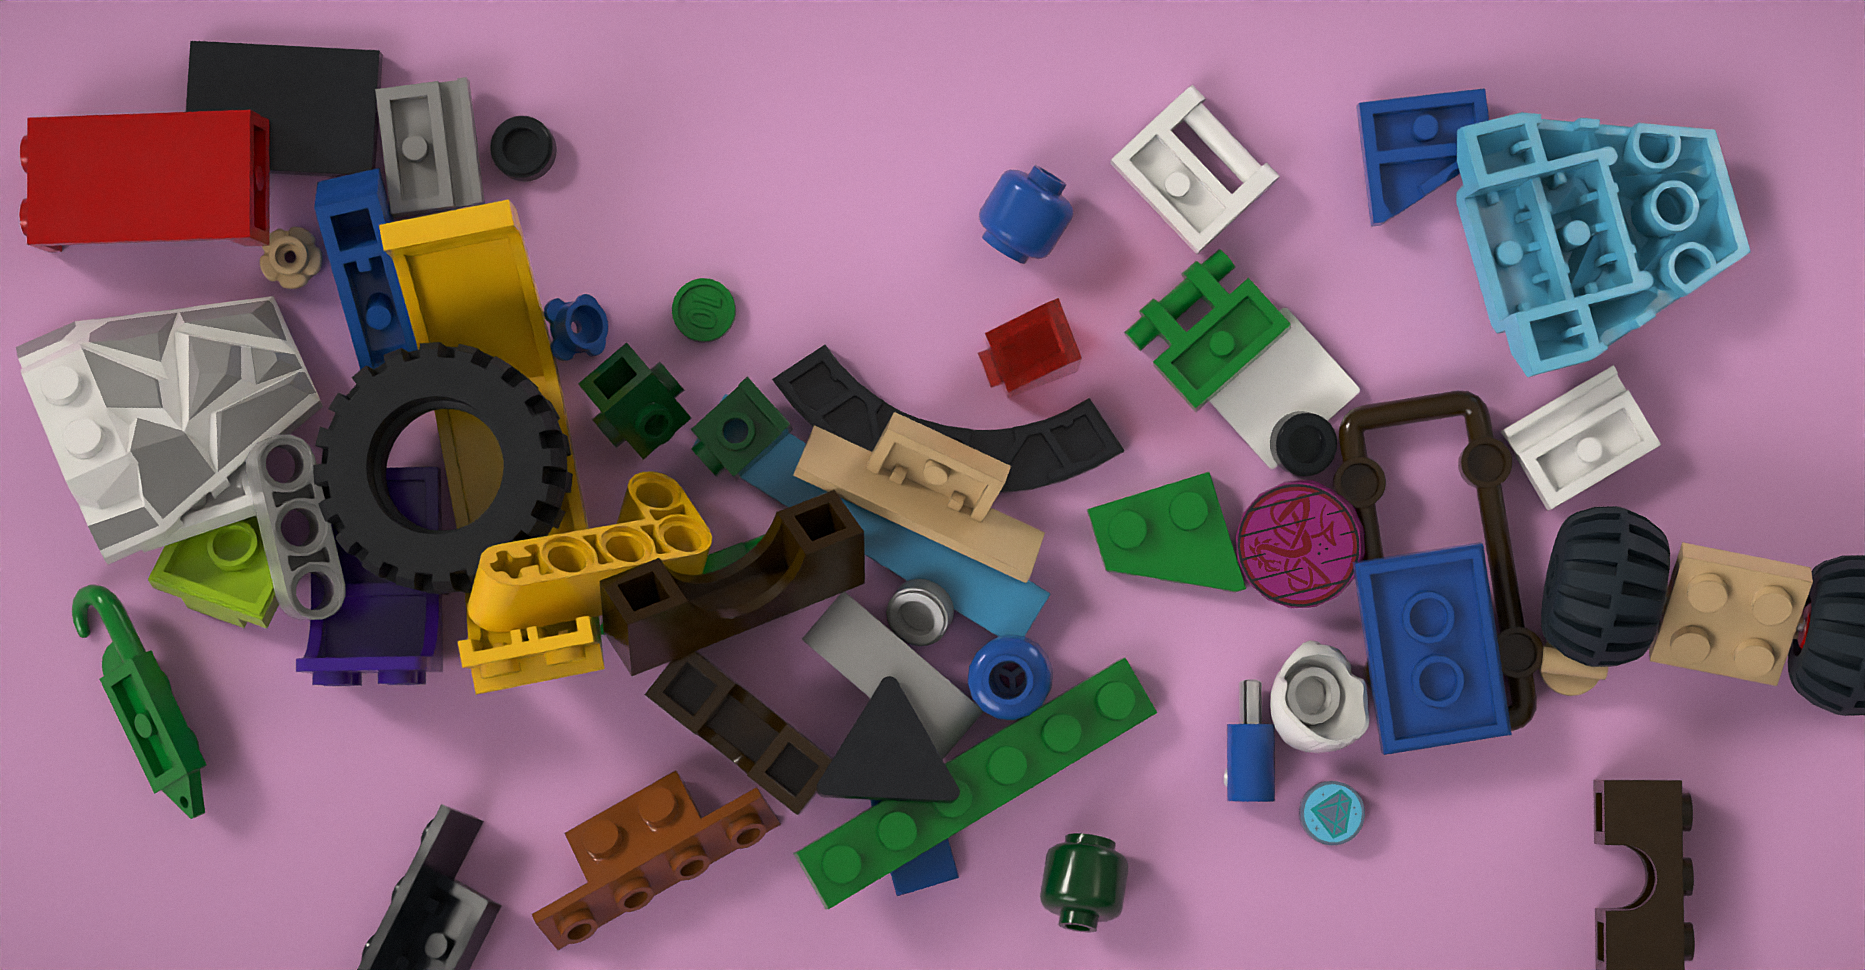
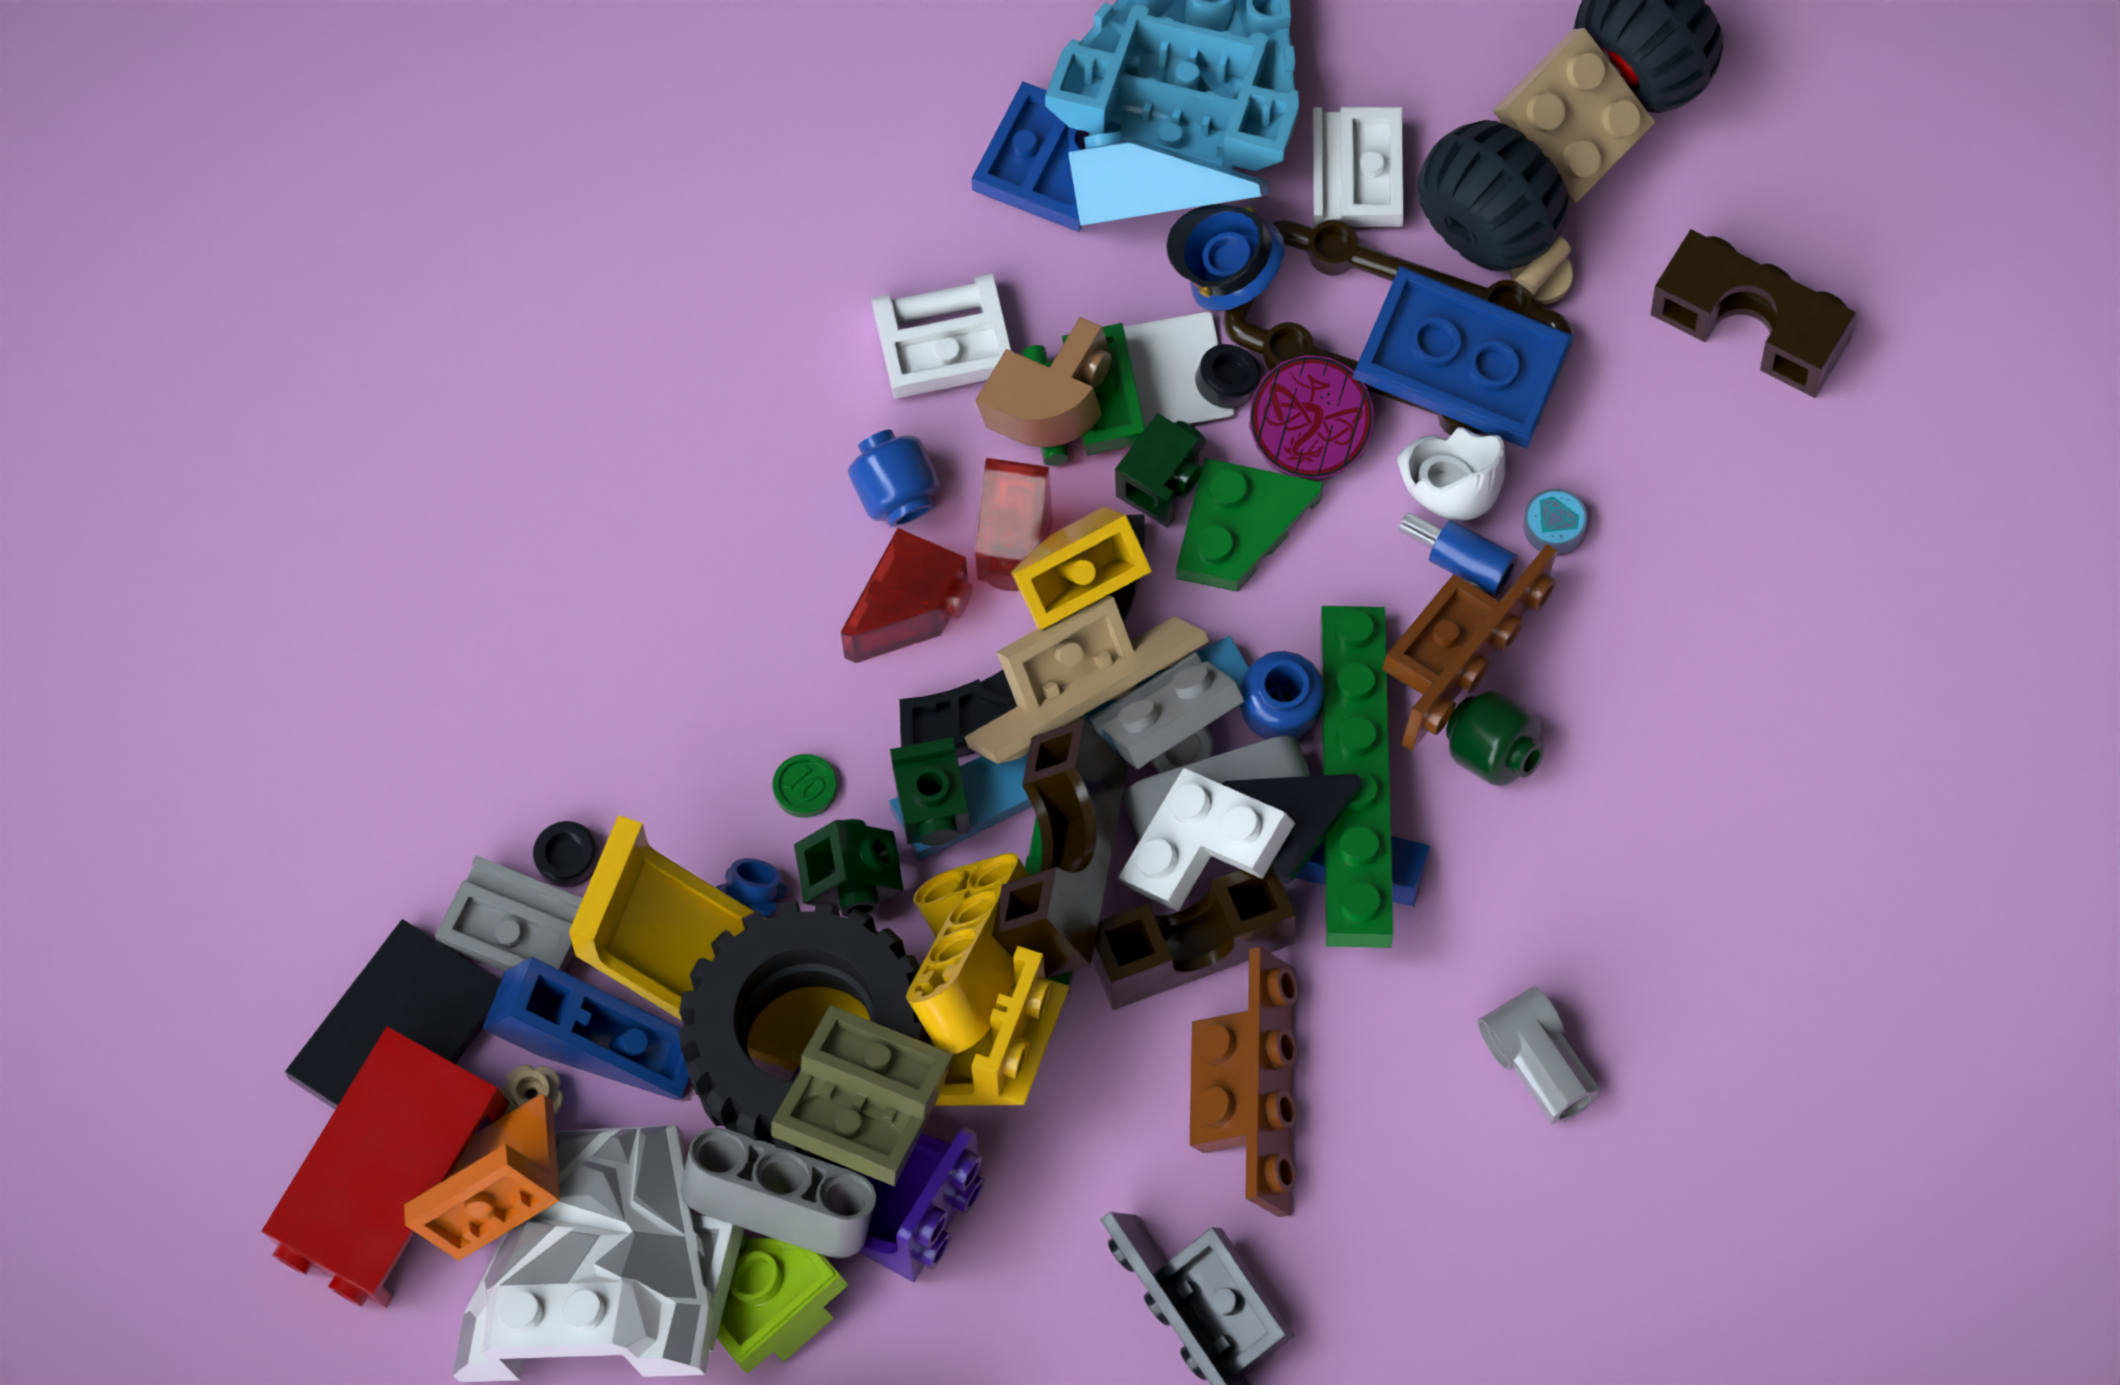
camera: 60 degrees left, 20 degrees down
(179, 286) = (496, 1184): none -> orange bracket
(385, 561) = (862, 1095): none -> olive slope
(833, 681) = (1198, 823): none -> white plate
(920, 294) = (906, 598): none -> clear red slope
(932, 588) = (1166, 710): none -> light grey plate
(1016, 433) = (1080, 566): none -> yellow slope
(1155, 794) = (1455, 637): none -> dark orange bracket
(1165, 314) = (1045, 403): none -> medium nougat brick
(1176, 441) = (1160, 468): none -> dark green brick
(1411, 377) = (1225, 254): none -> blue piece
(1447, 271) = (1144, 179): none -> medium azure slope

